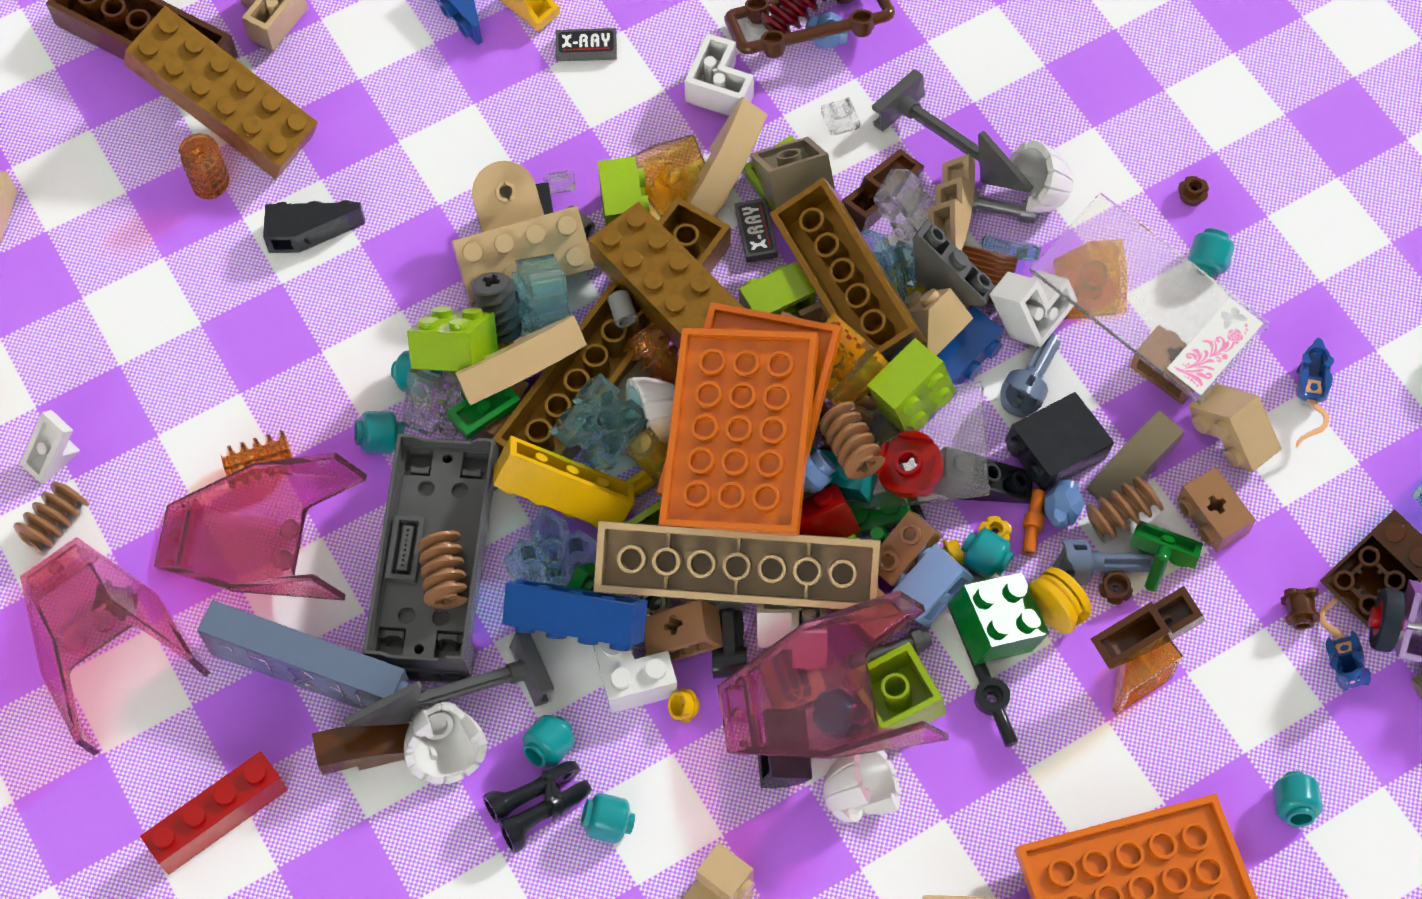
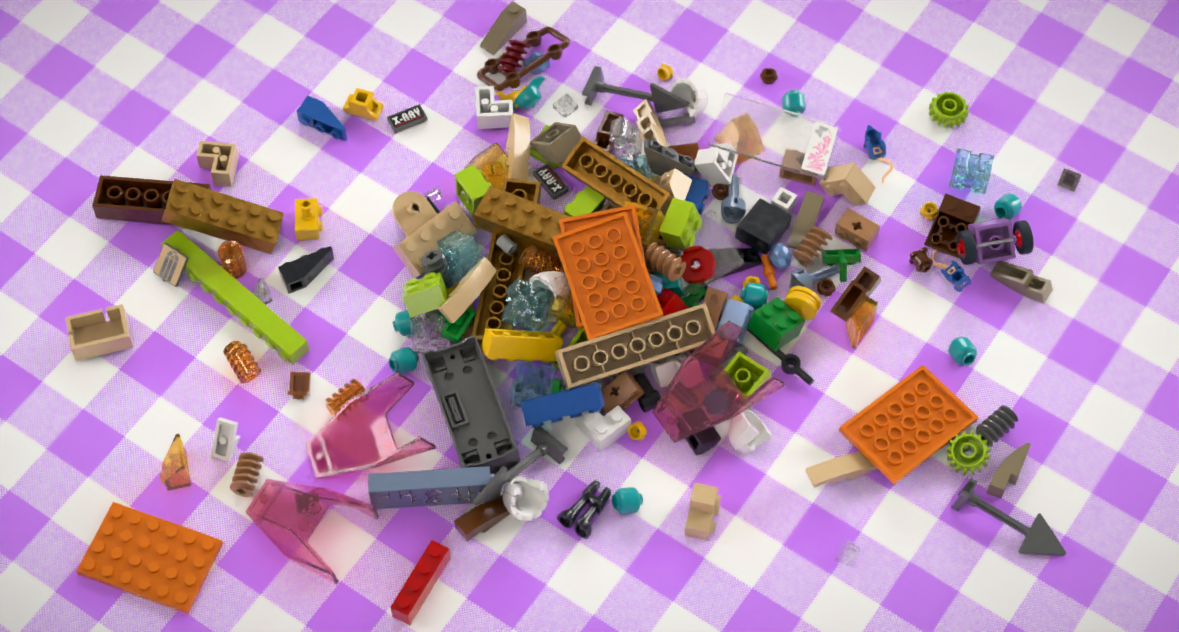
camera: 25 degrees left, 5 degrees down
(115, 138) = (170, 265): none -> piece
(137, 333) = (241, 361): none -> clear orange piece
(184, 229) = (239, 300): none -> lime brick
(203, 406) = (299, 385): none -> dark orange bracket
(228, 236) = (262, 291): none -> clear slope
(353, 146) = (308, 219): none -> yellow brick
(440, 571) = (482, 410): medium nougat piece -> none
(548, 741) = (577, 476): teal head -> none
(782, 78) = (526, 97): none -> teal hair
(1017, 360) = (720, 195): none -> reddish brown plate
(1023, 251) = (697, 138): clear light blue bar -> none
(1025, 121) = (665, 72): none -> yellow plate
(1118, 405) = (784, 200): none -> white plate
(1360, 518) = (929, 206): none -> yellow plate

